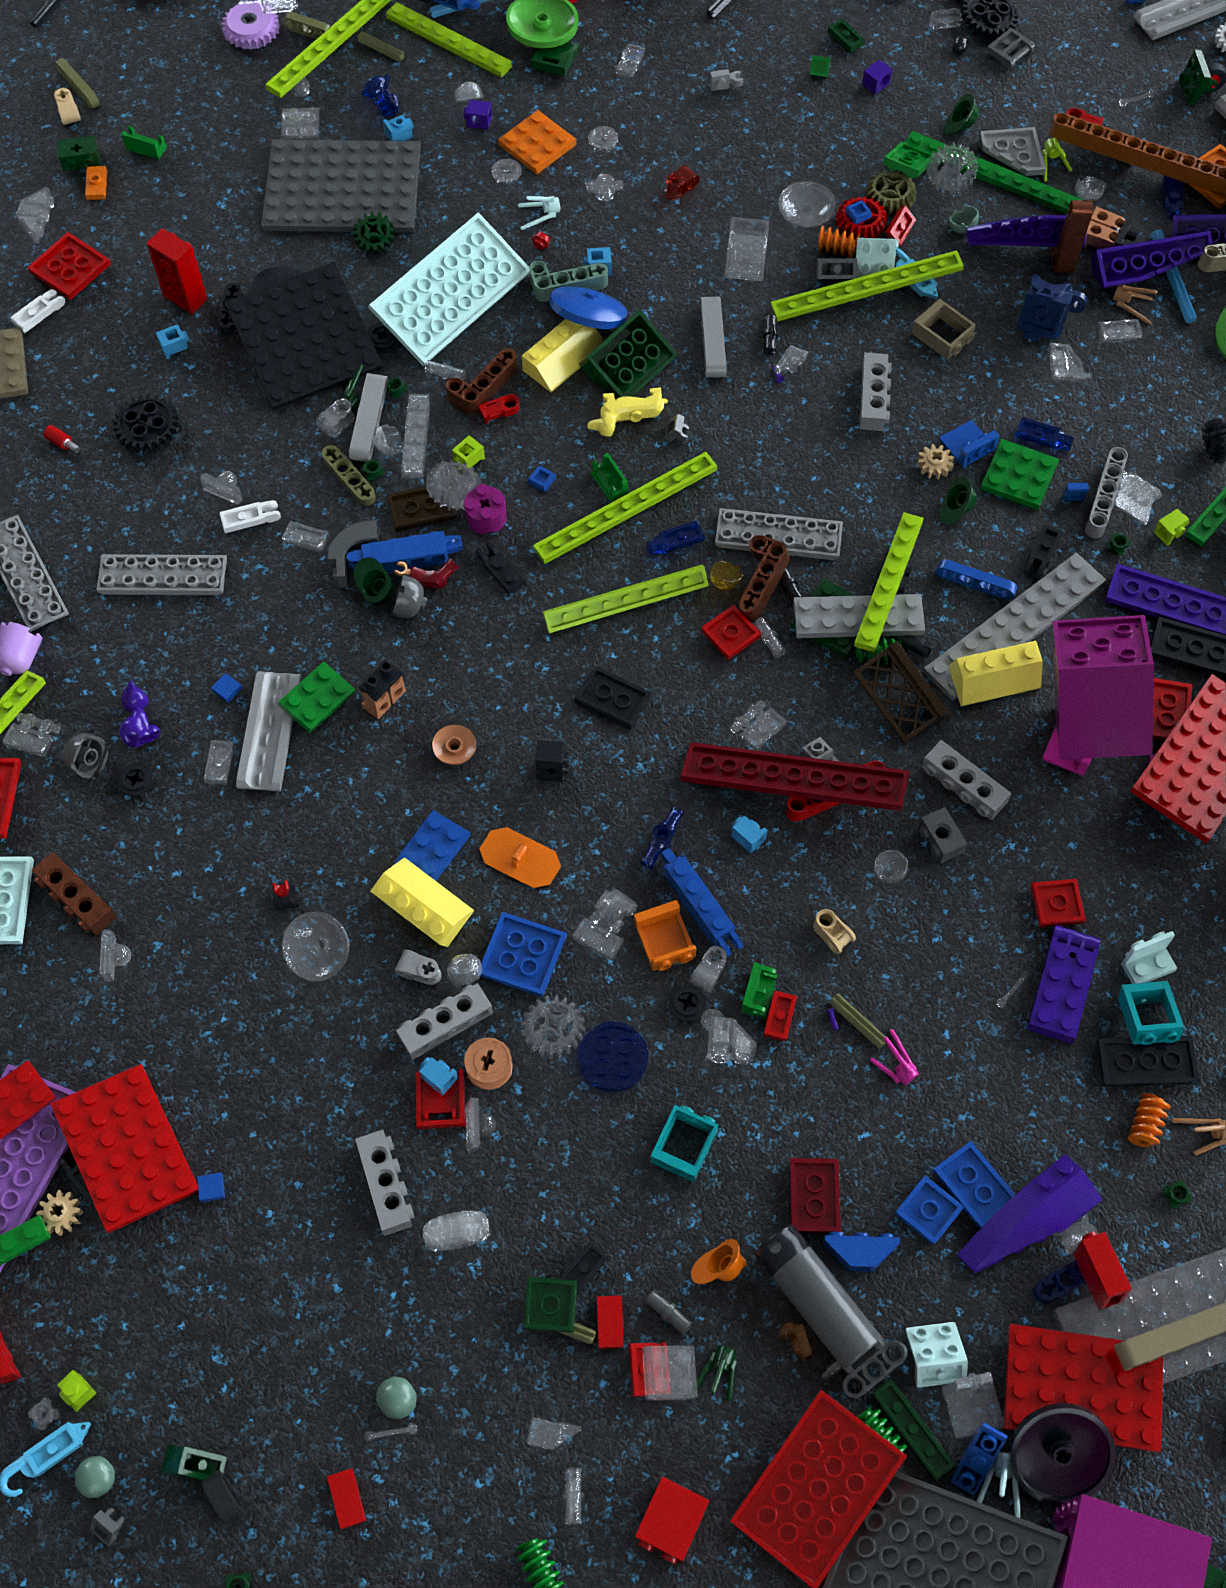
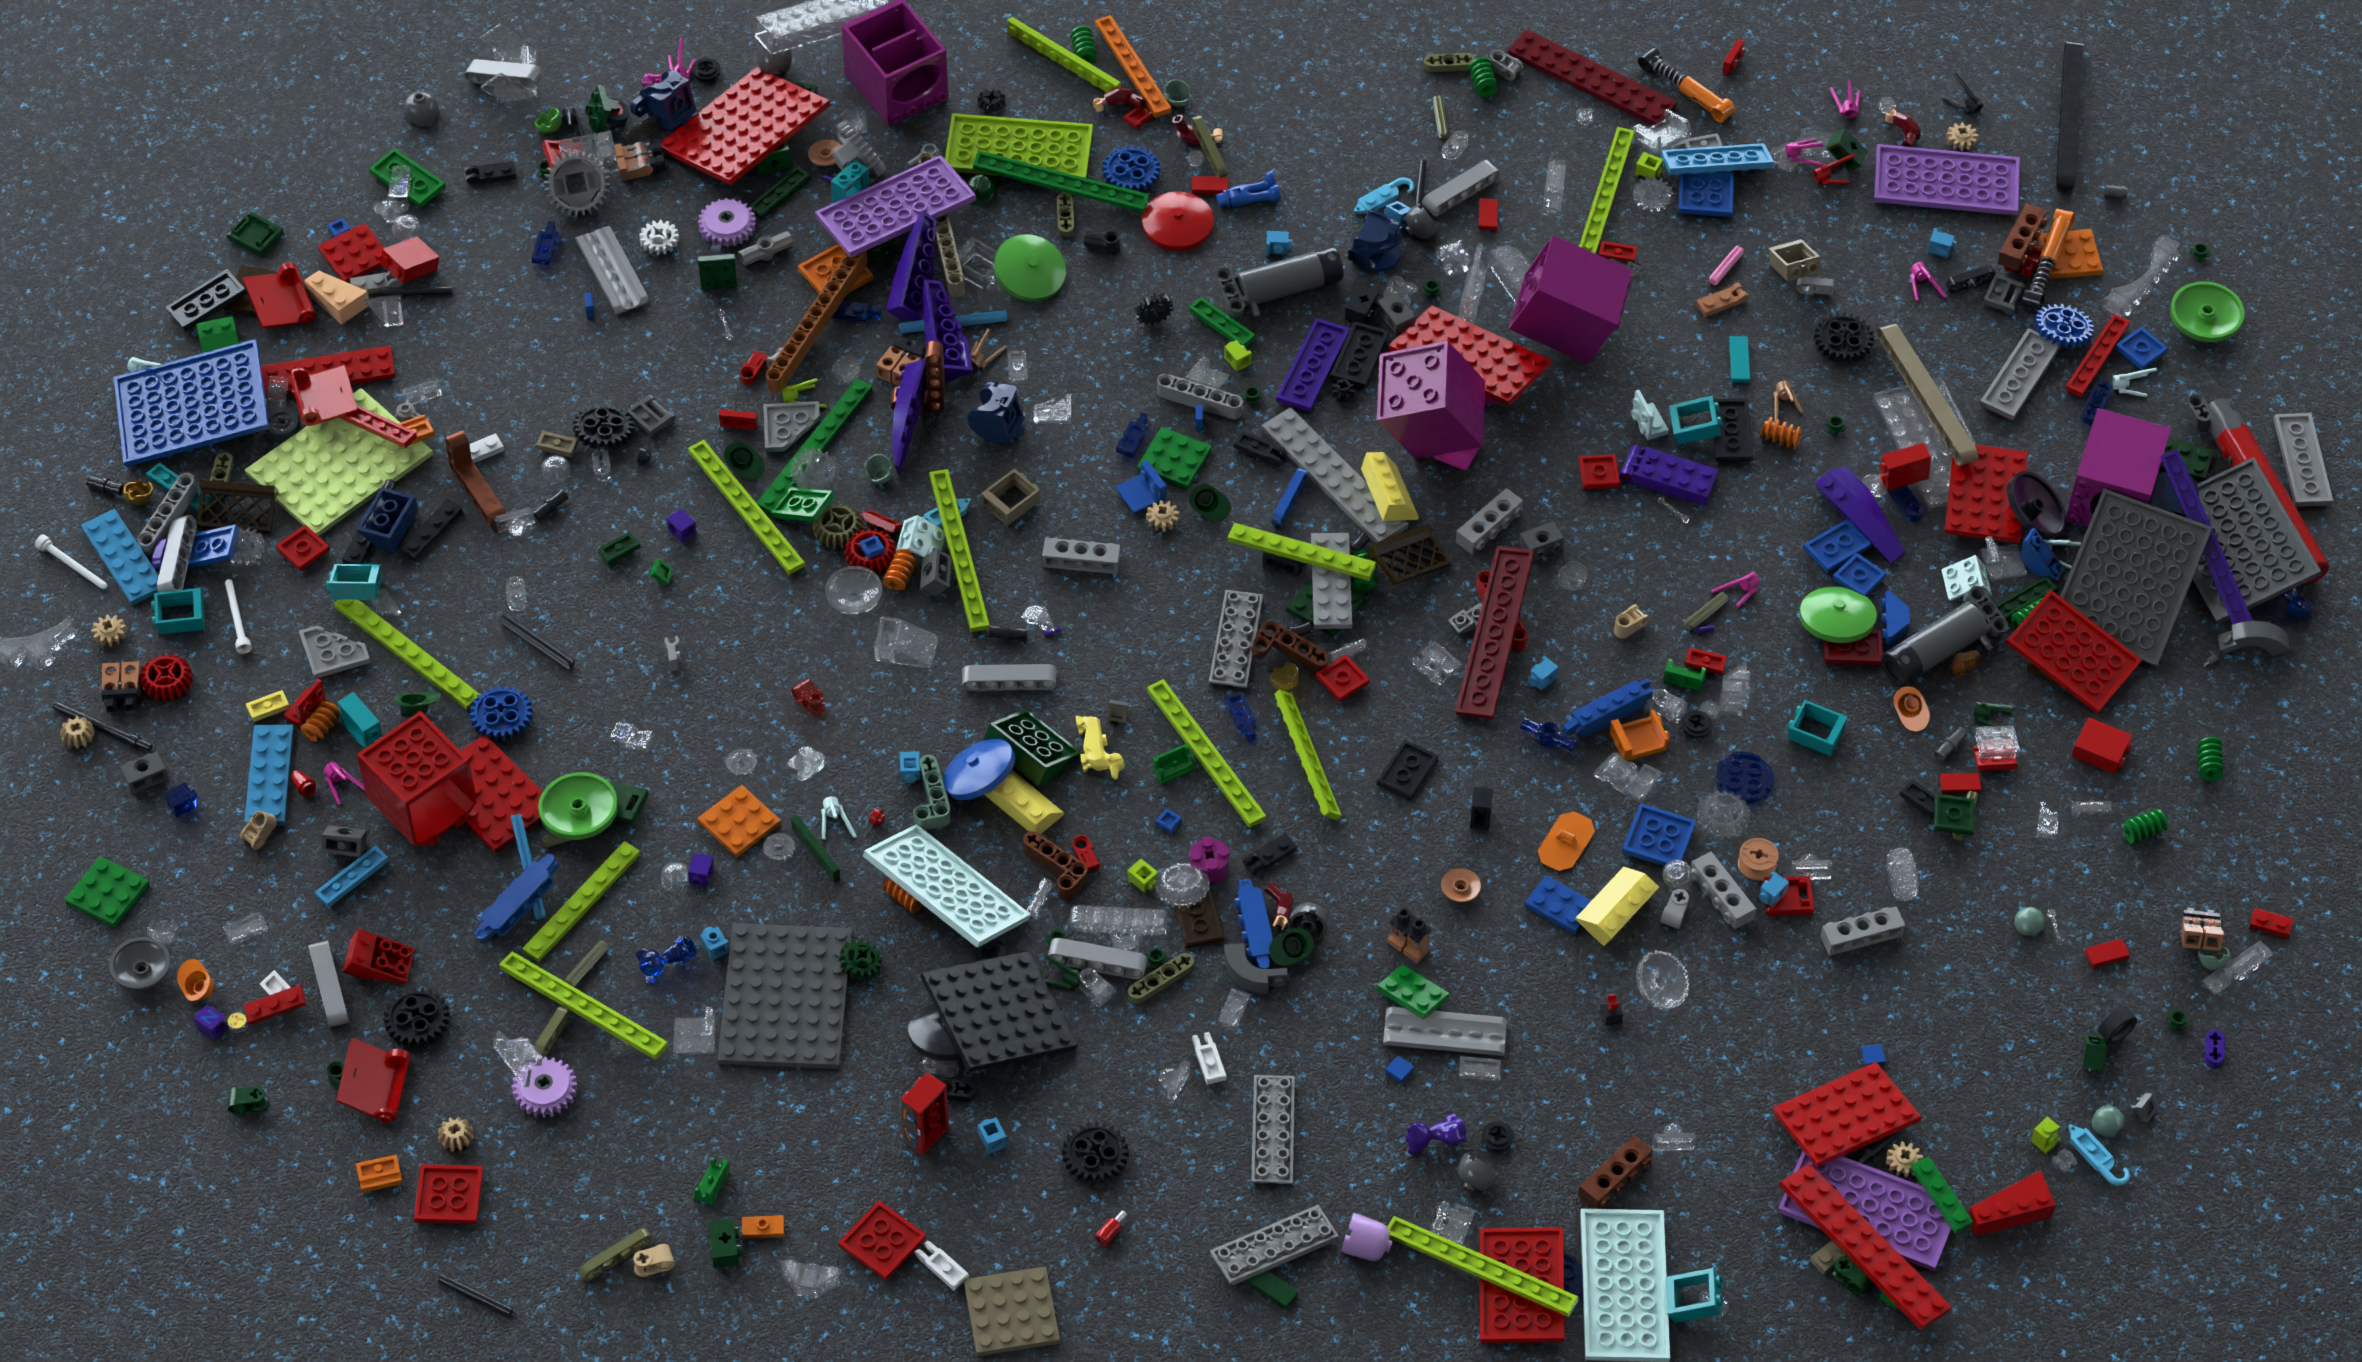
camera: 90 degrees left, 10 degrees down
(502, 194) = (815, 848): none -> dark green tile
(861, 1177) = (1838, 614): none -> bright green dish
(904, 124) = (746, 507): none -> lime plate
(1014, 106) = (738, 419): none -> red plate

